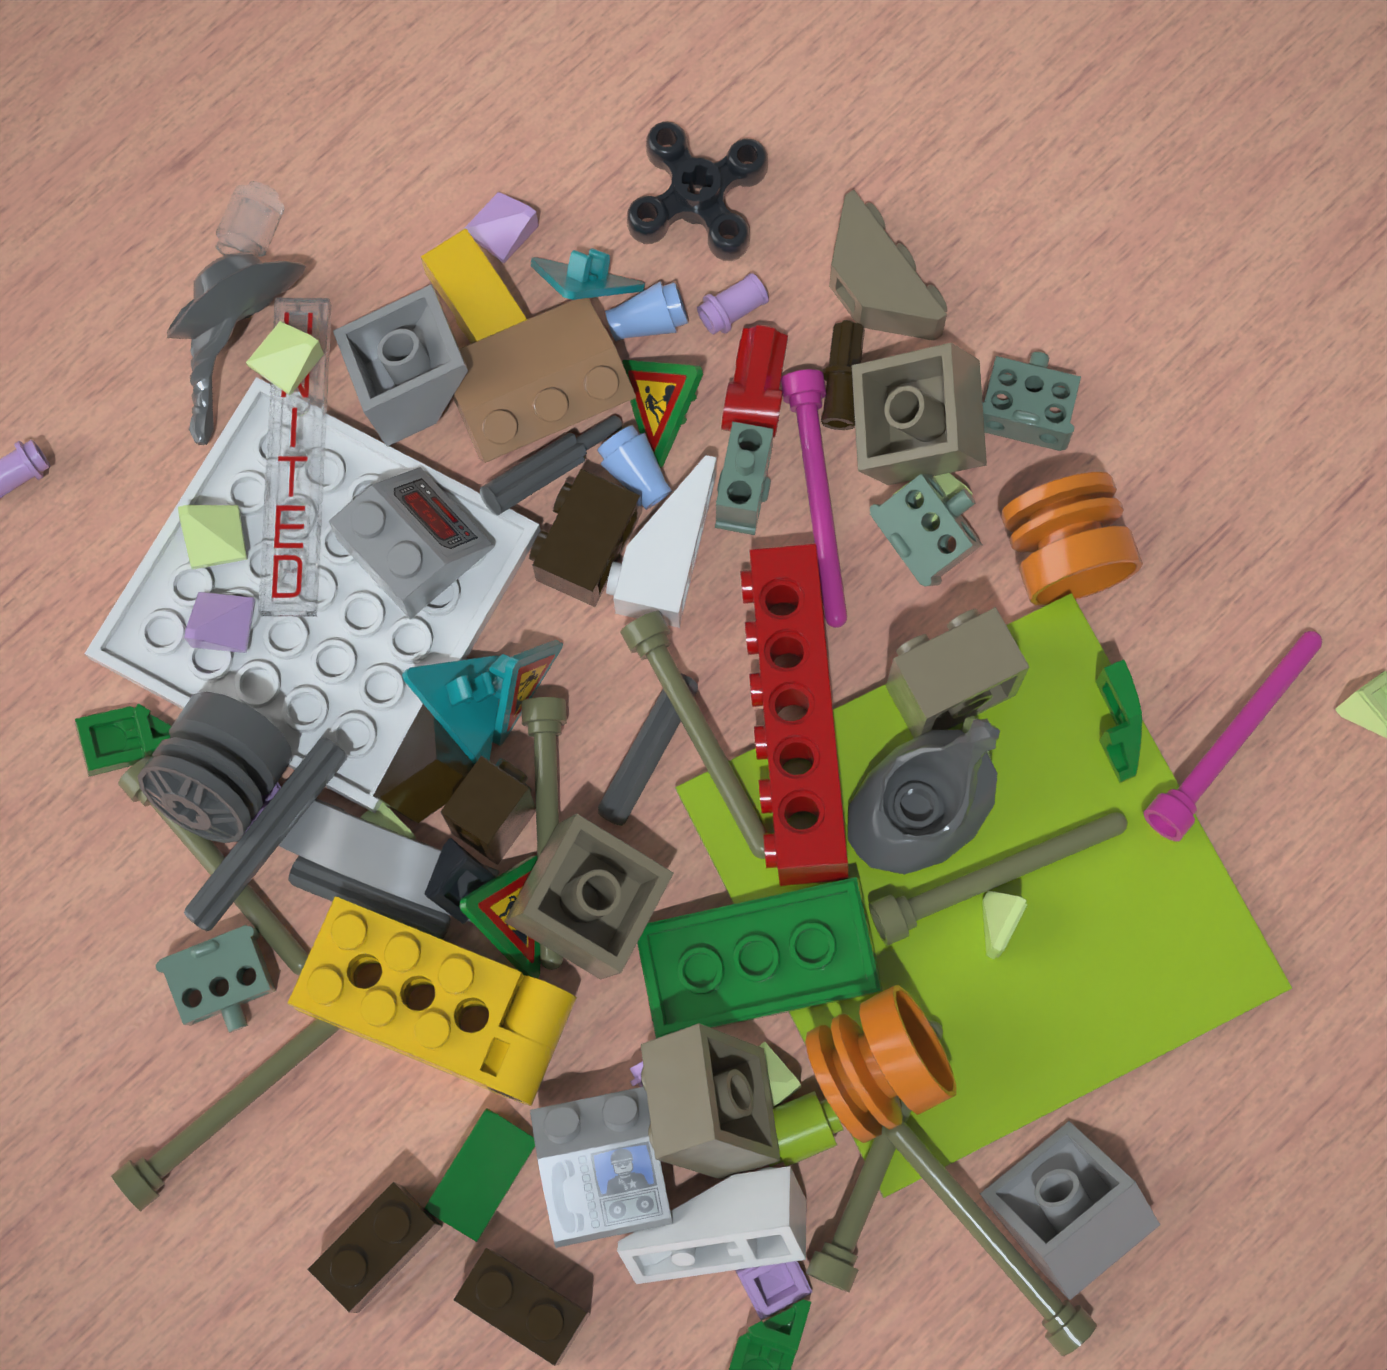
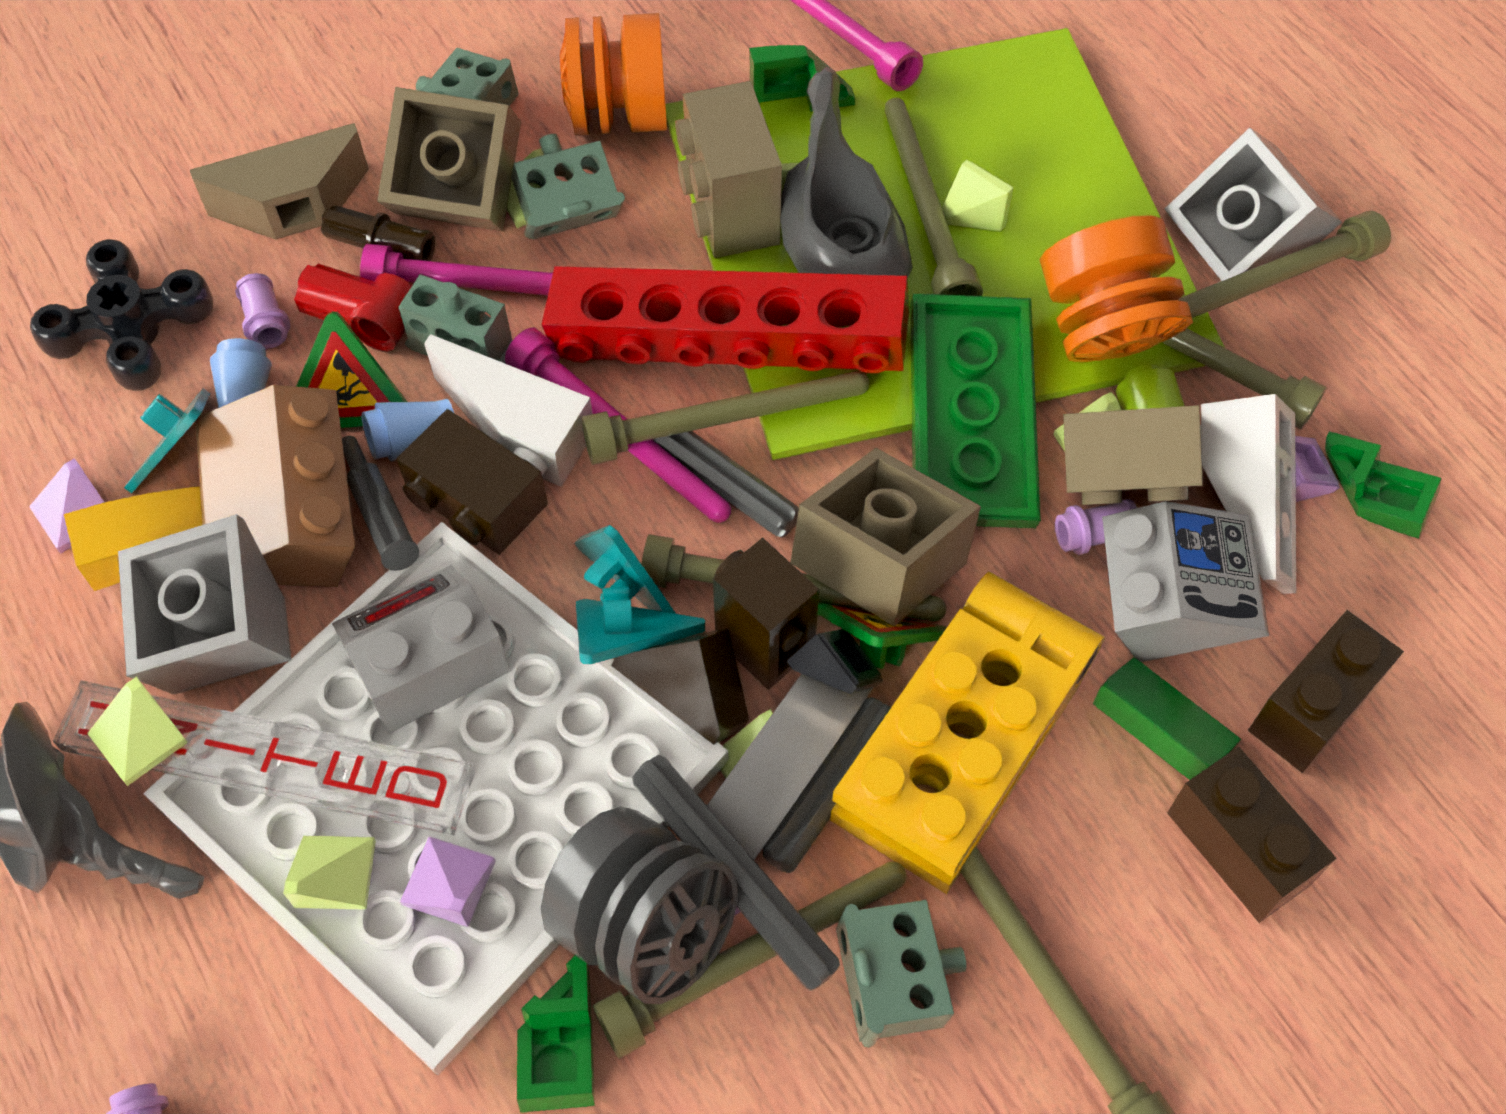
camera: 80 degrees left, 15 degrees down
(730, 558) = (537, 355): none -> dark pink piece

